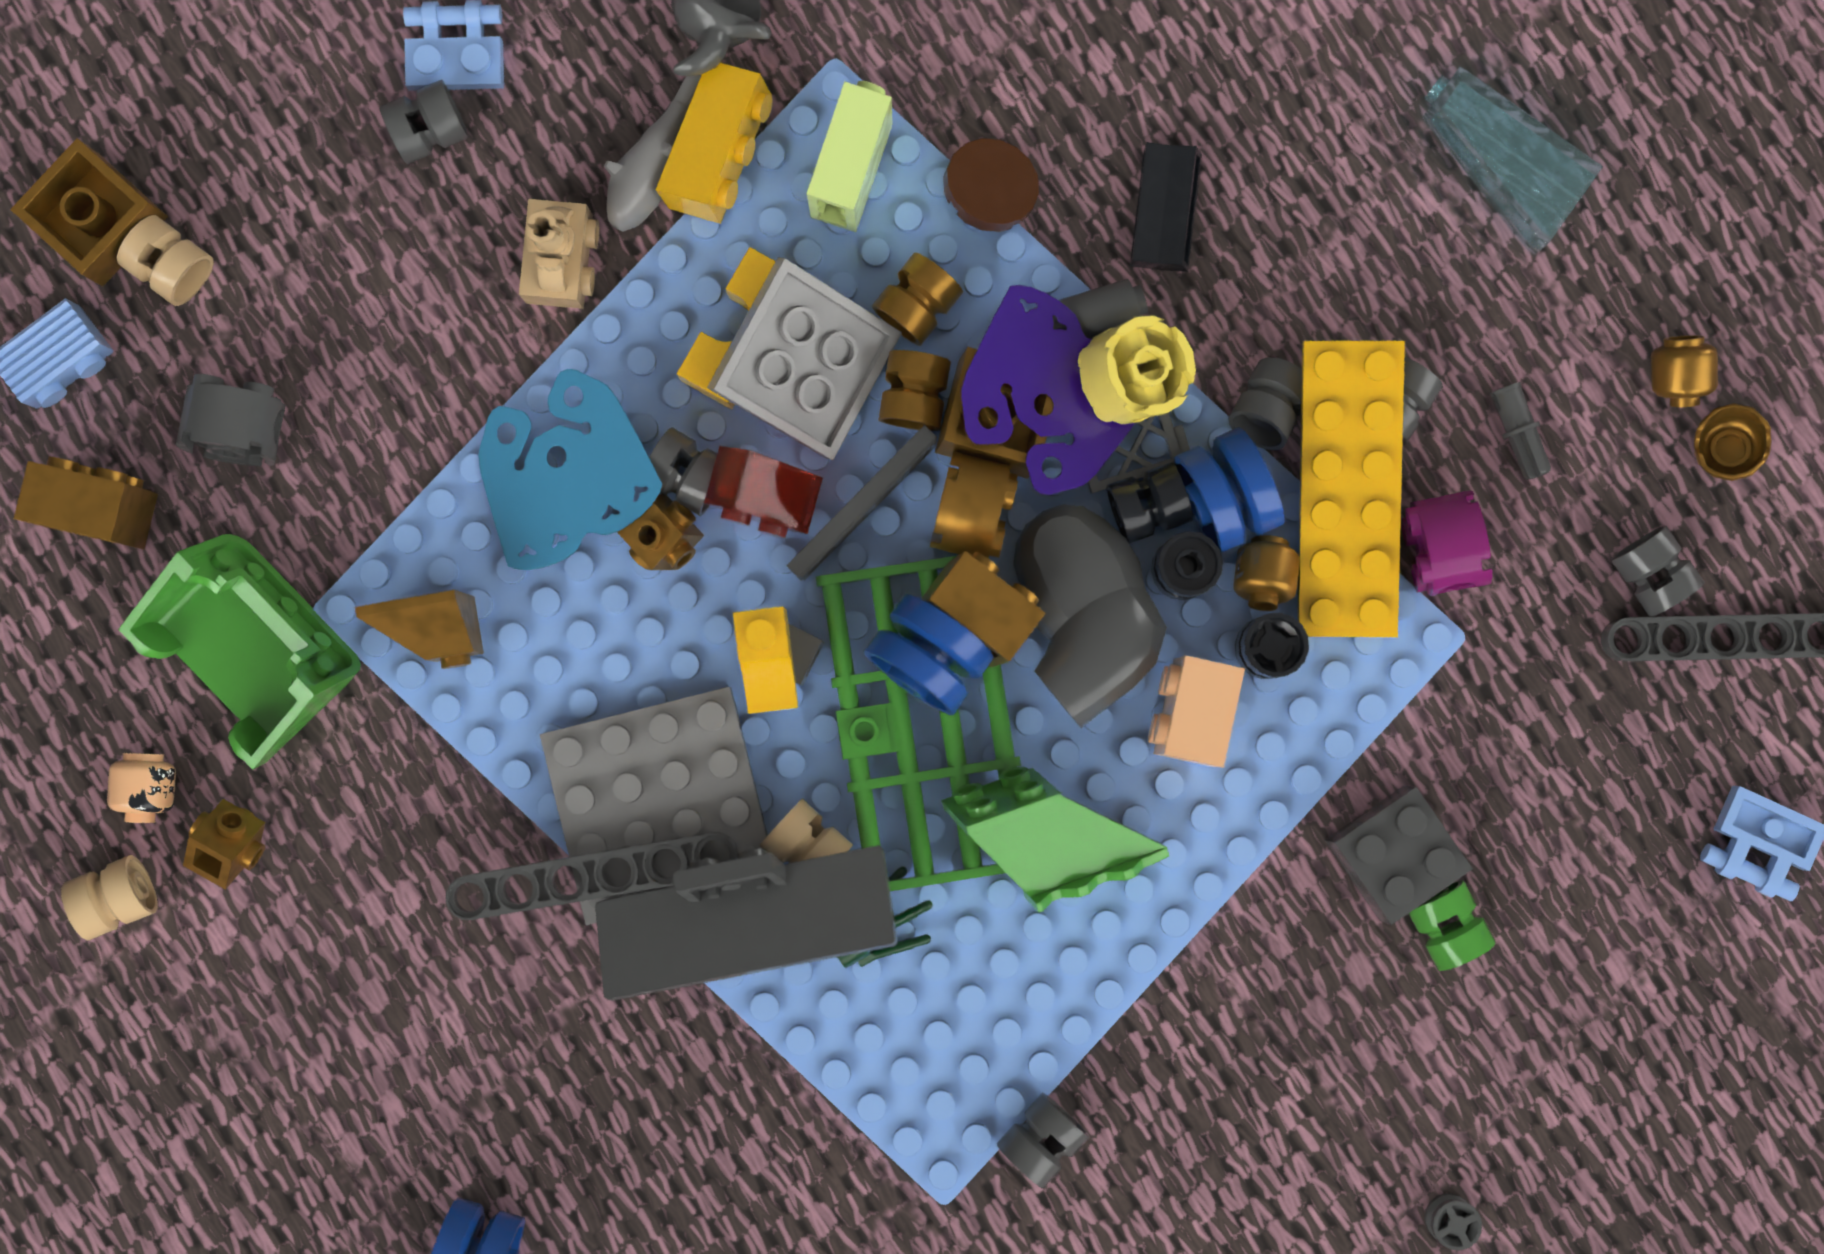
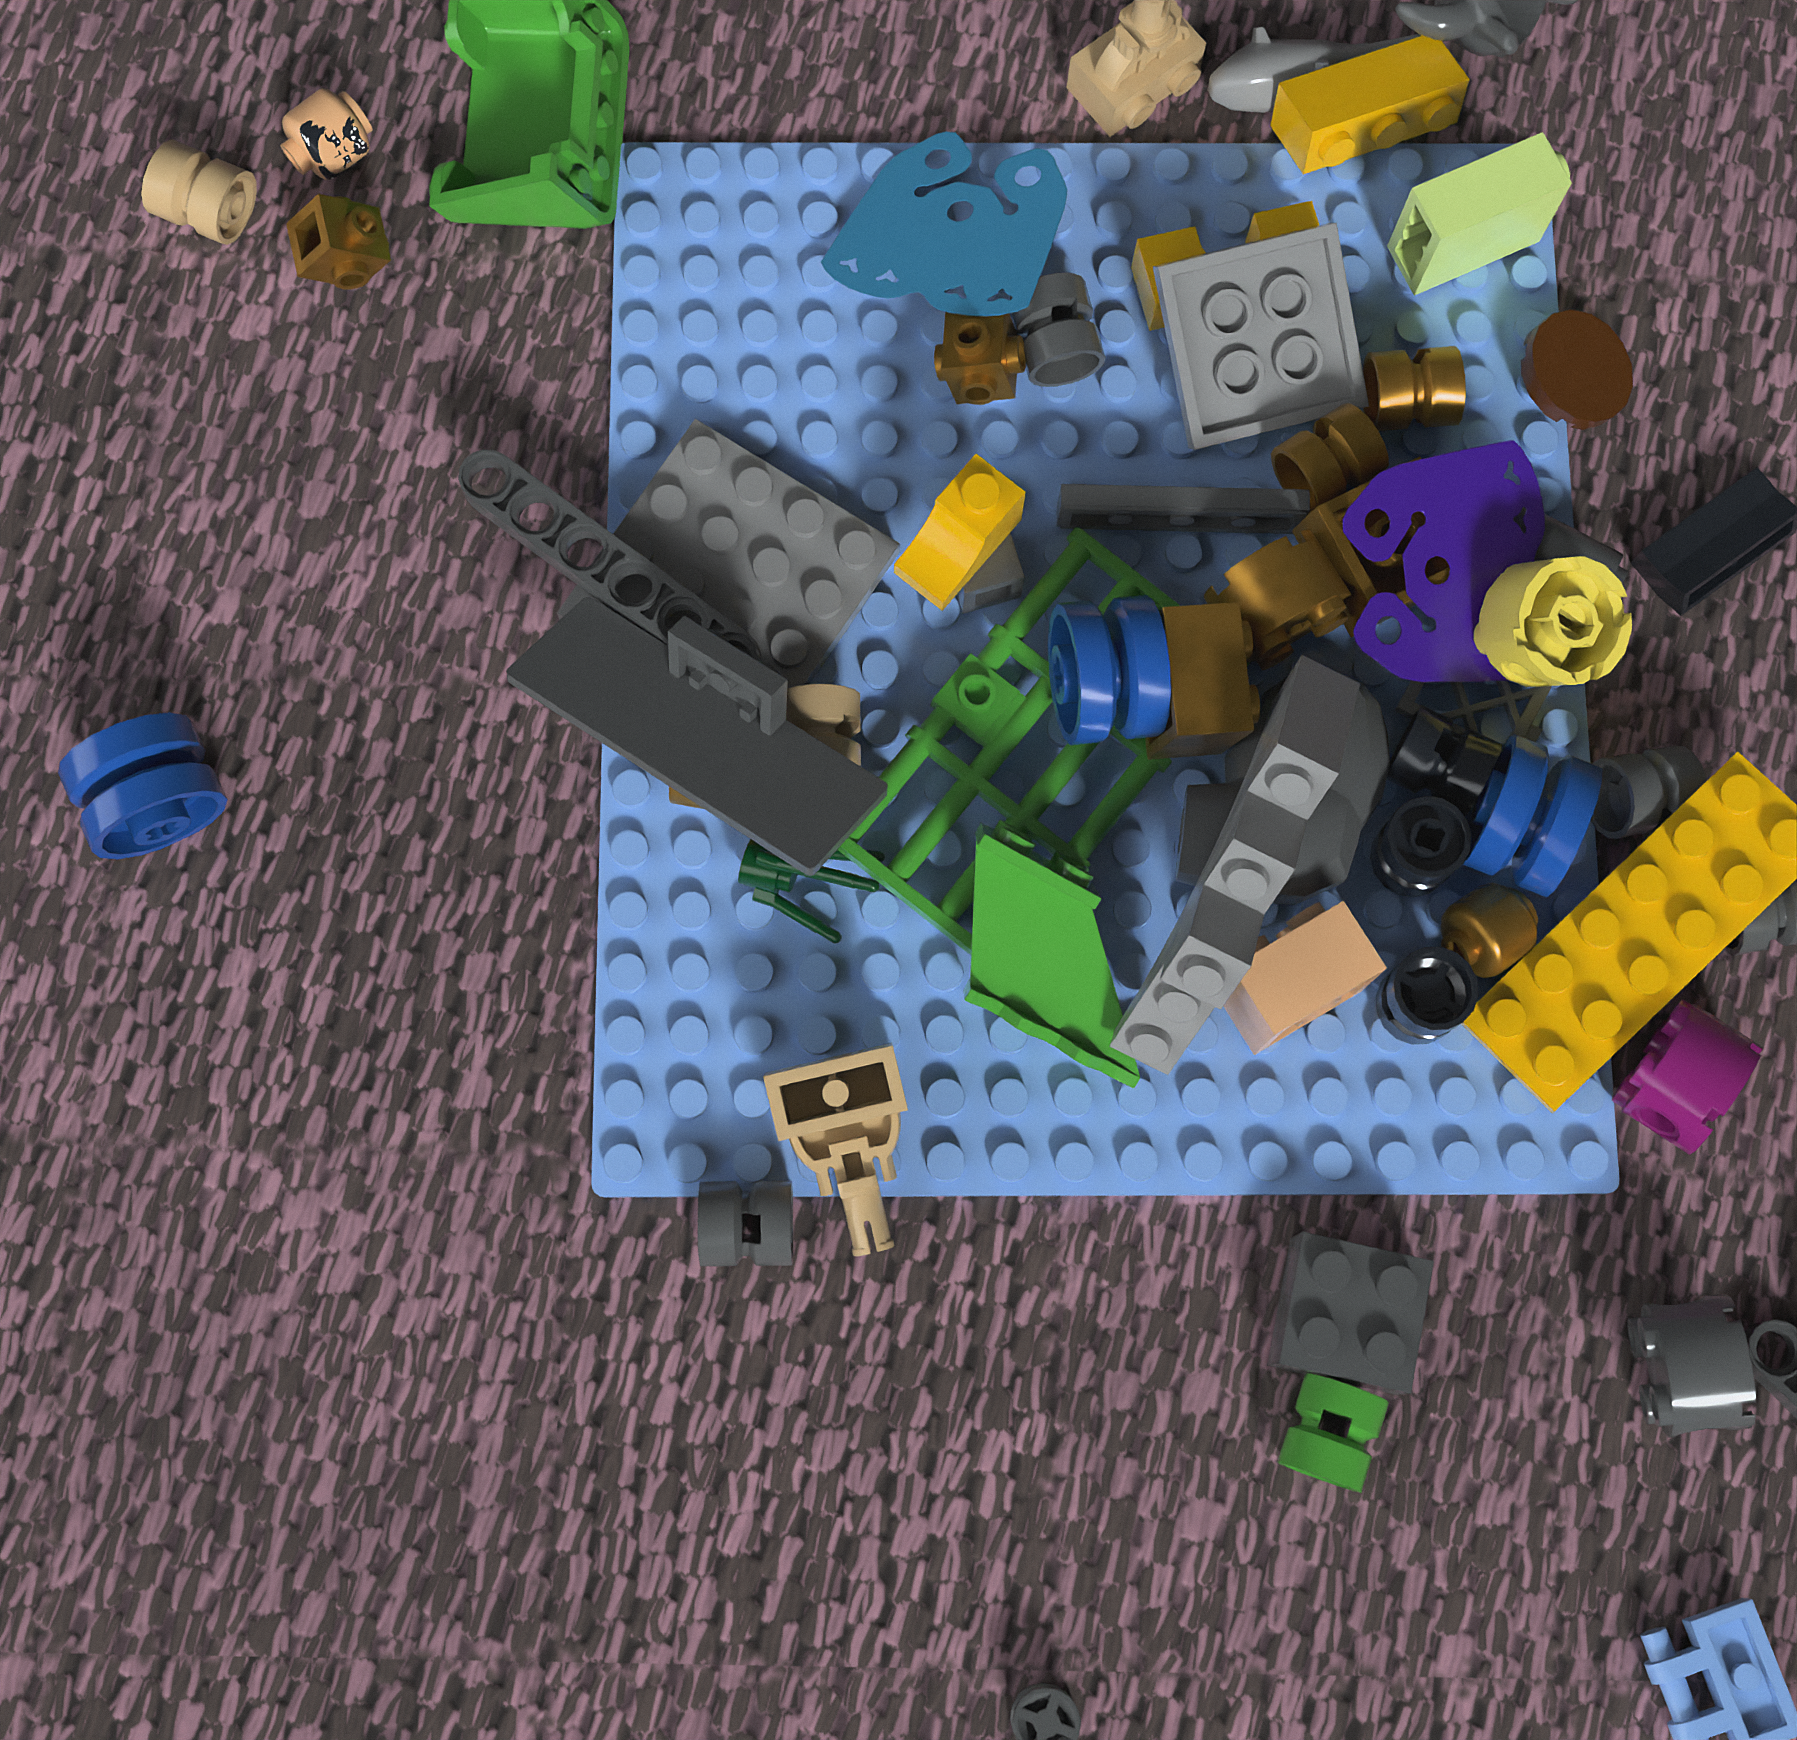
camera: 45 degrees right, 10 degrees down
(430, 625) = (709, 229): pearl gold slope -> none
(763, 491) = (1107, 403): clear red piece -> none
(1036, 1034) = (841, 1118): none -> tan brick
(1120, 688) = (1247, 867): none -> light grey arch
(1598, 696) = (1694, 1366): none -> dark grey brick

